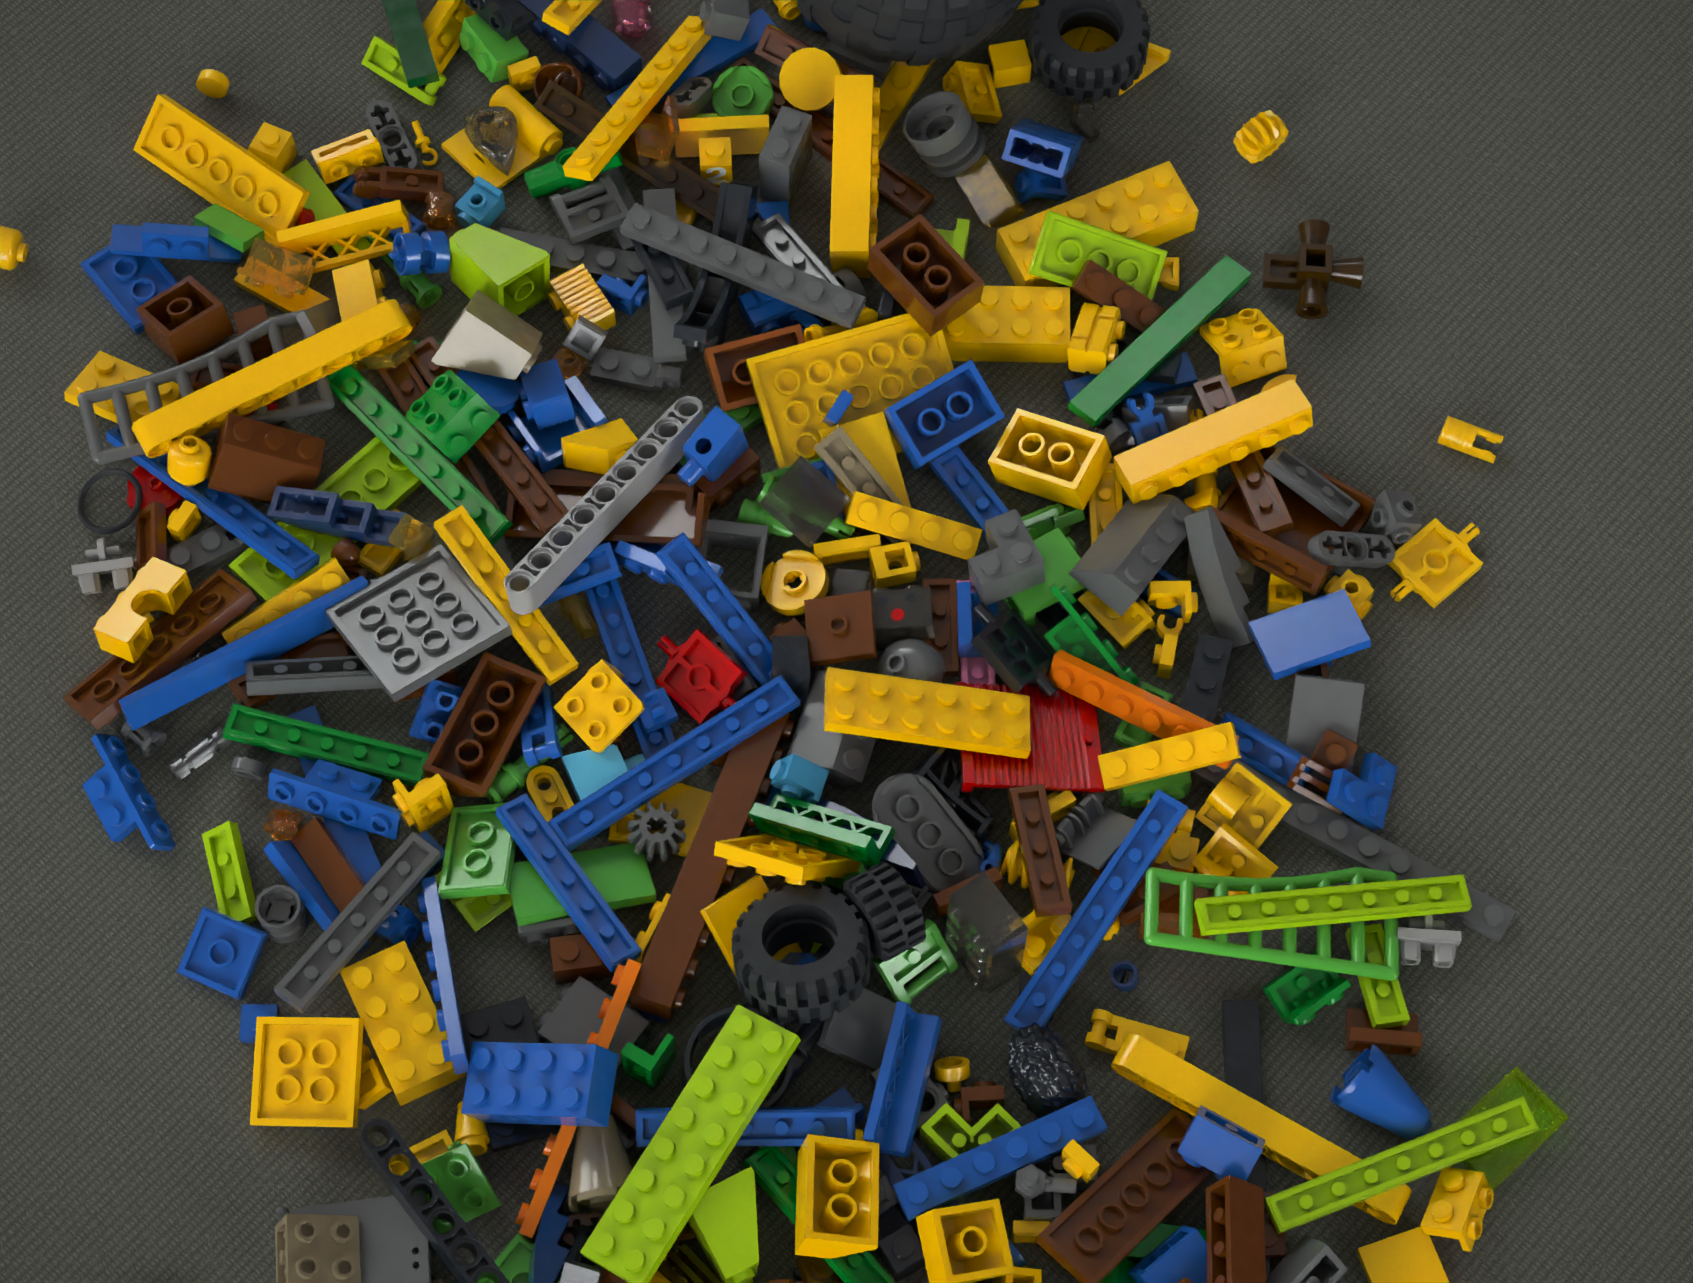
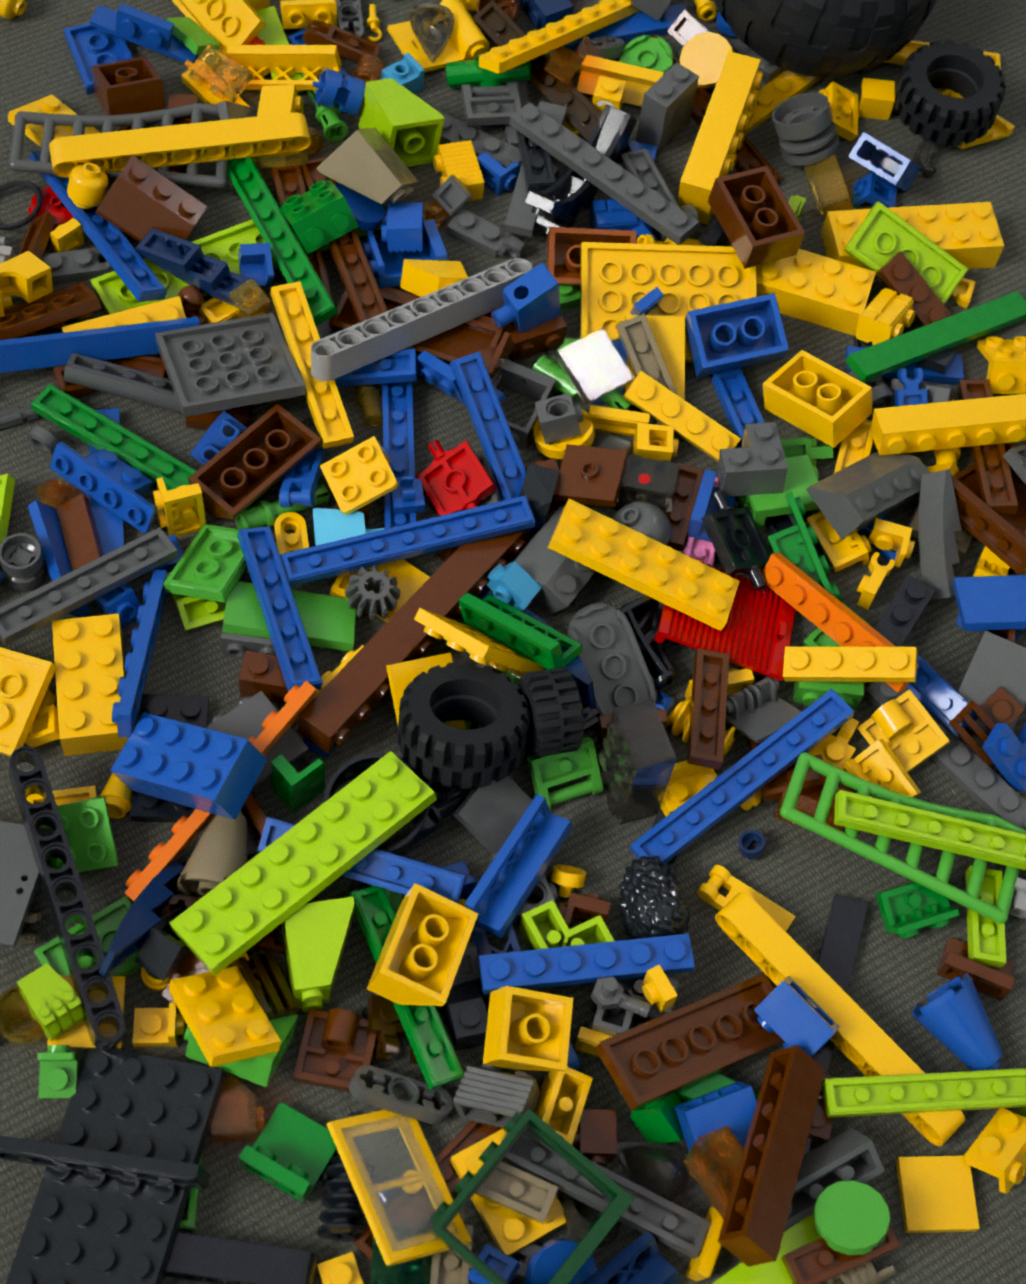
camera: 10 degrees right, 5 degrees down
(403, 492) = (256, 263): none -> blue panel
(791, 583) = (559, 418): none -> dark grey brick

